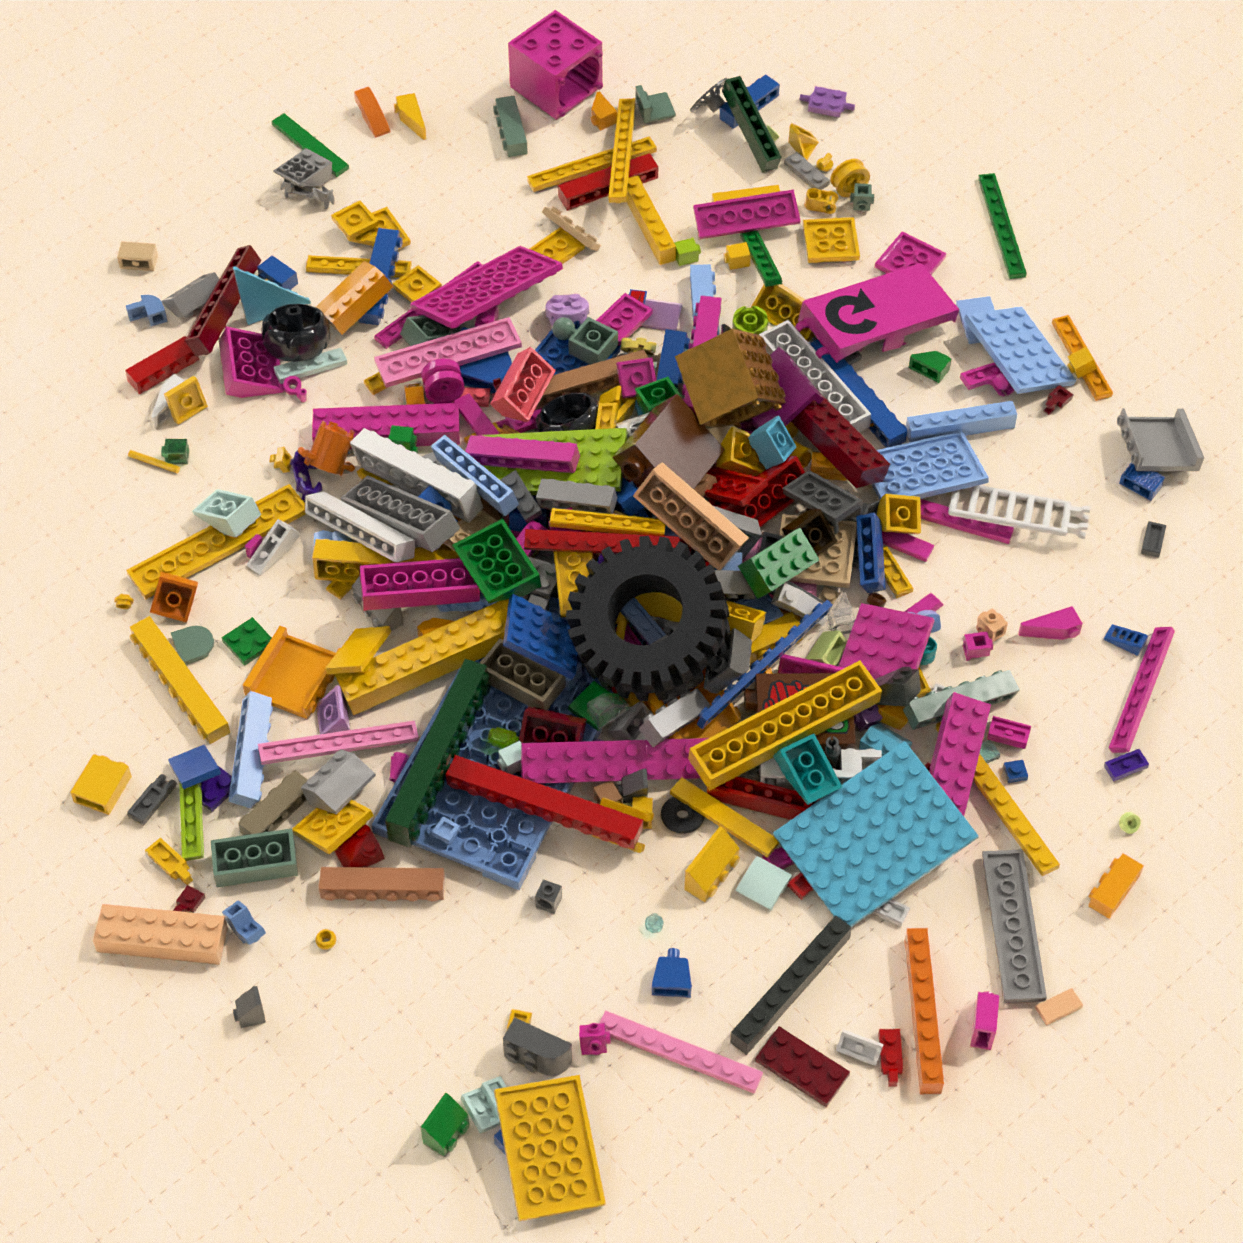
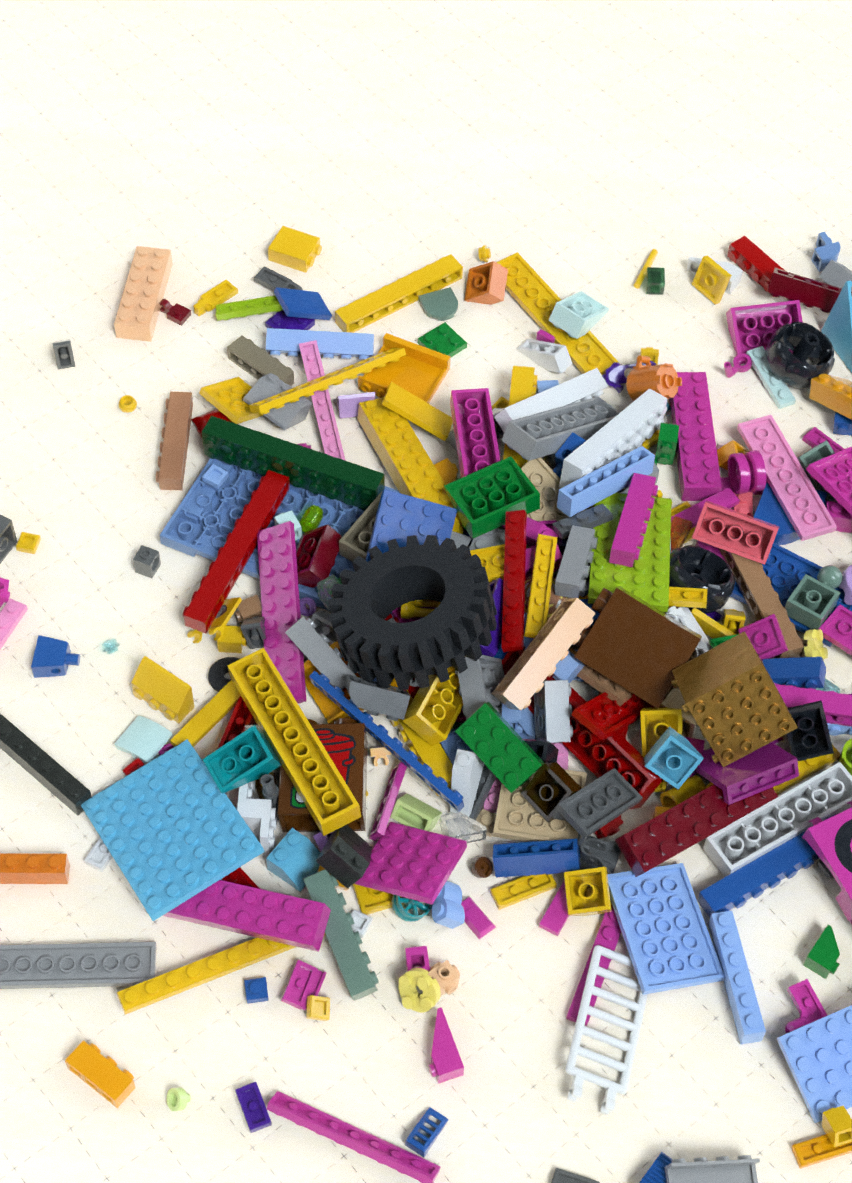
camera: 90 degrees right, 0 degrees up
(243, 924) = (146, 346): medium blue brick -> none
(254, 858) = (208, 349): sand green brick -> none
(319, 729) = (322, 383): none -> yellow plate
(989, 751) = (282, 963): clear light blue tile -> none
(1009, 648) = (411, 997): none -> light yellow plate
(1028, 719) = (318, 1008): none -> yellow tile
(1058, 397) = (785, 1097): dark red plate -> none

